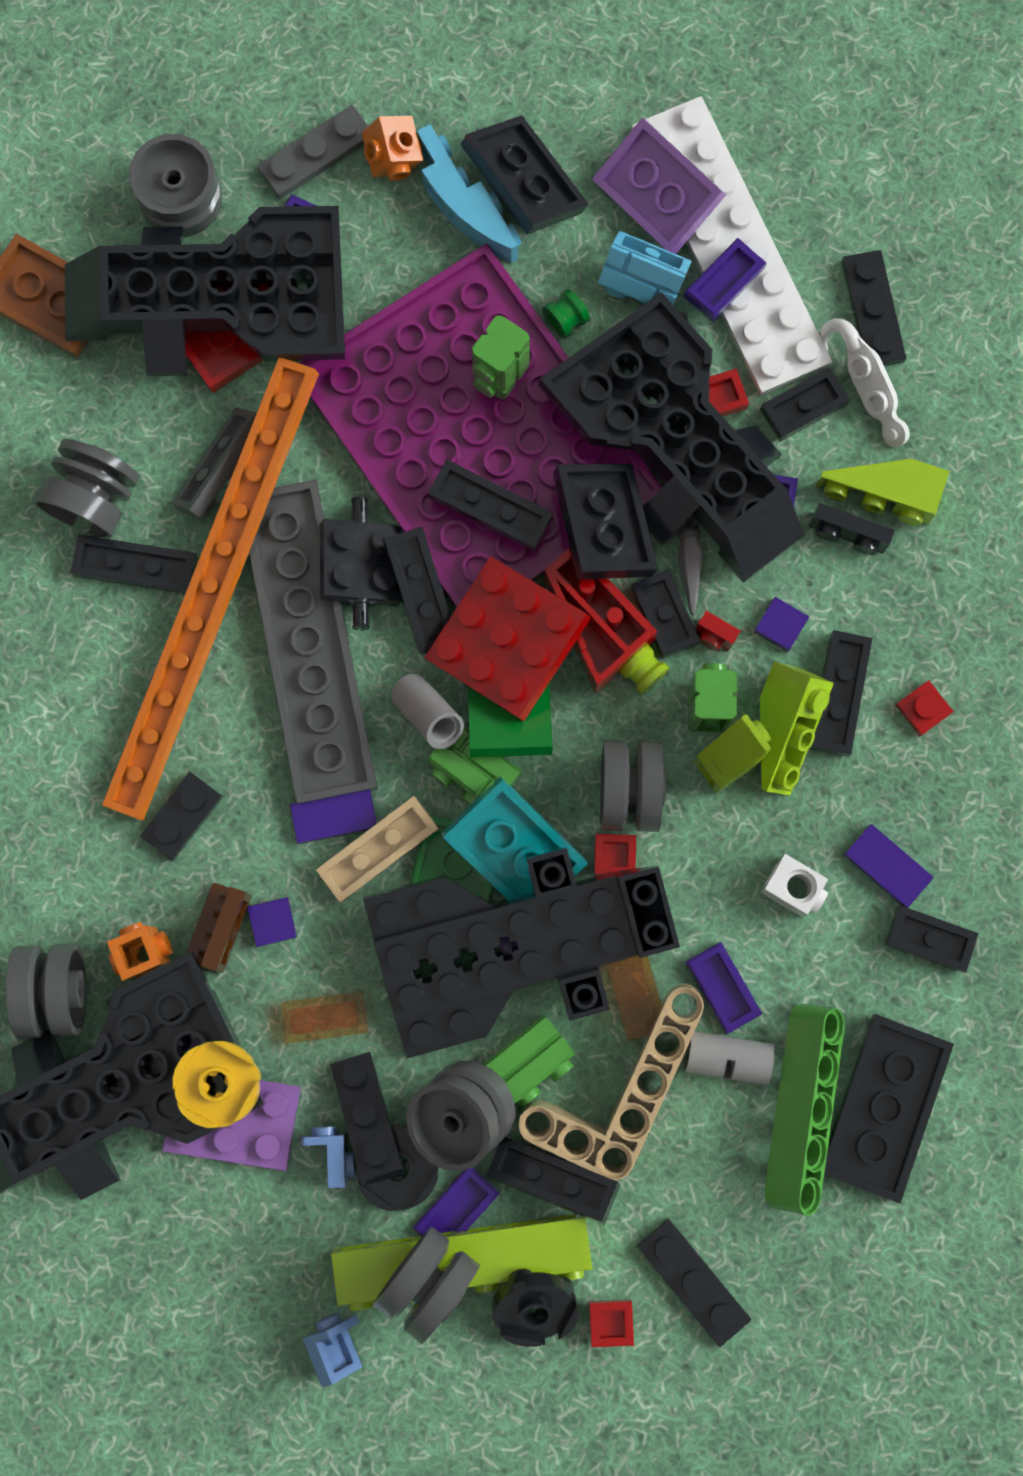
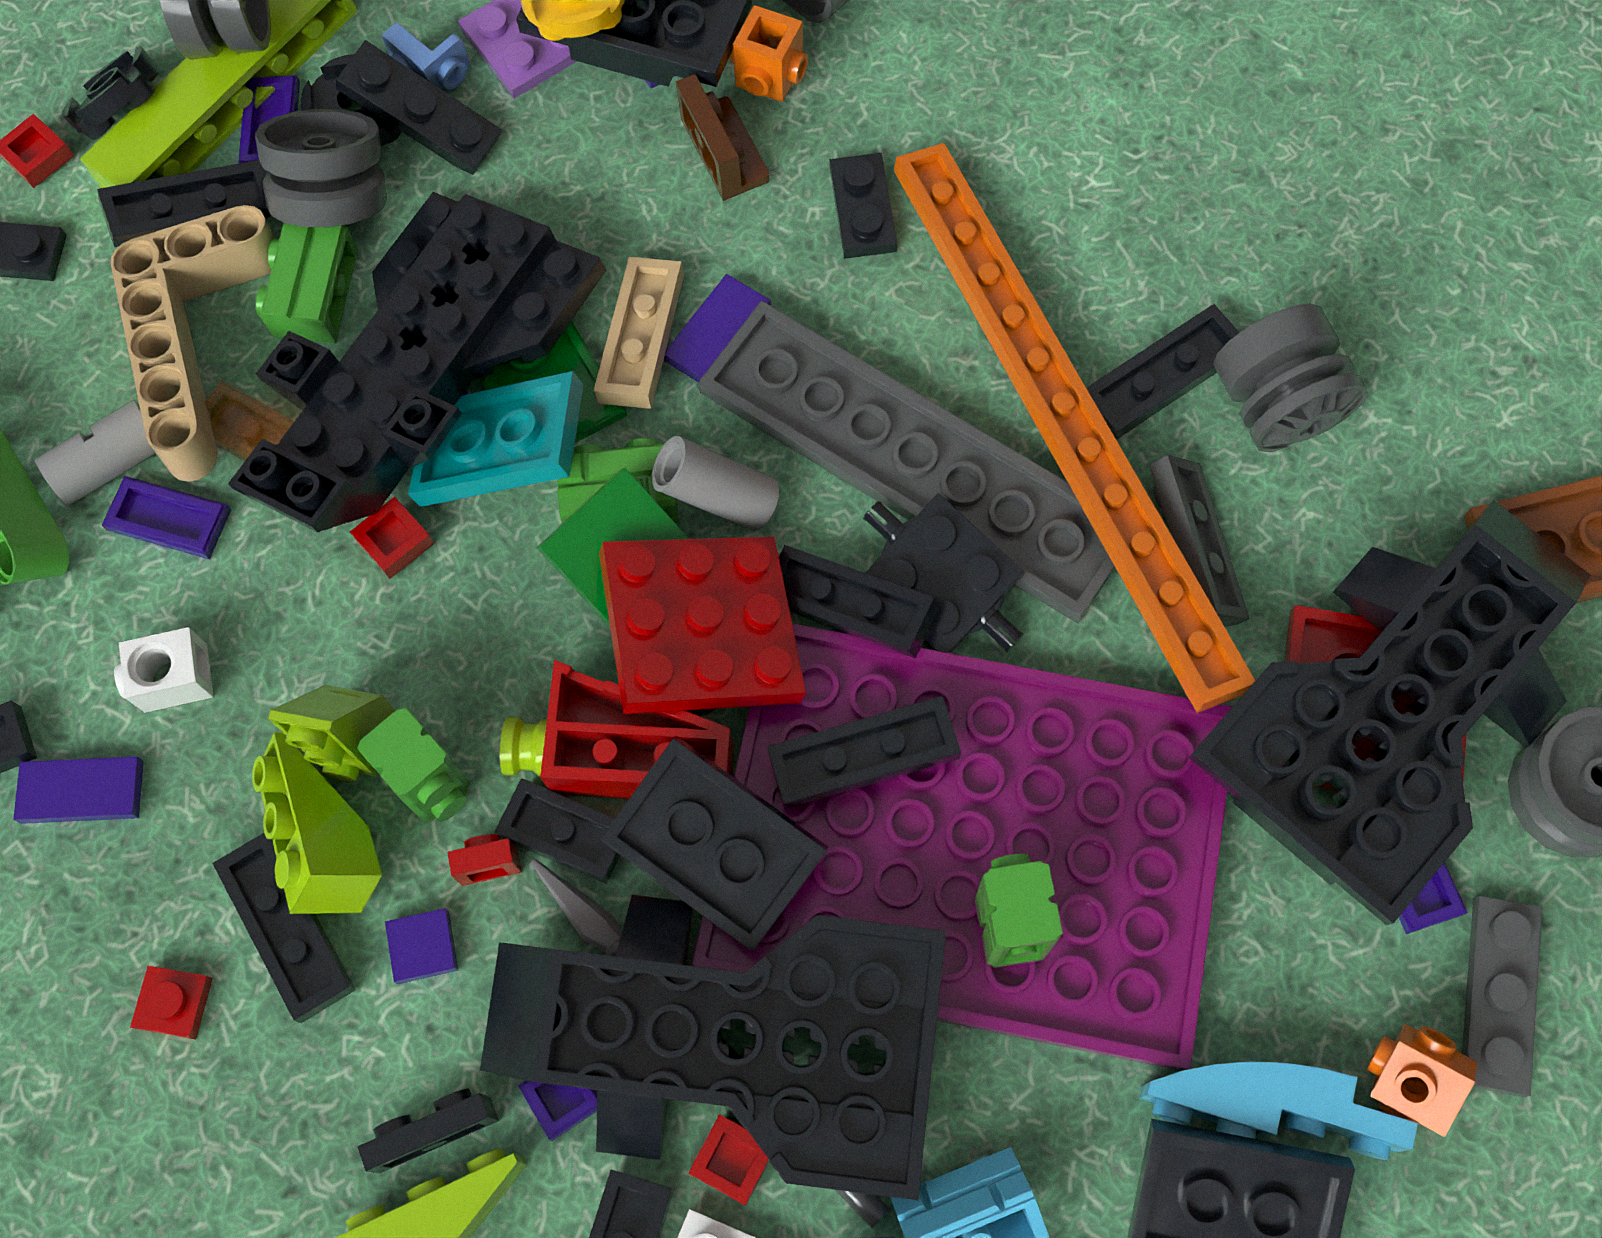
camera: 140 degrees right, 10 degrees down
(272, 922) = (679, 195): dark purple tile -> none
(324, 1017) = (546, 163): clear orange plate -> none
(566, 313) = (1011, 1075): green wheel -> none
(632, 786) = (432, 594): dark grey wheel -> none

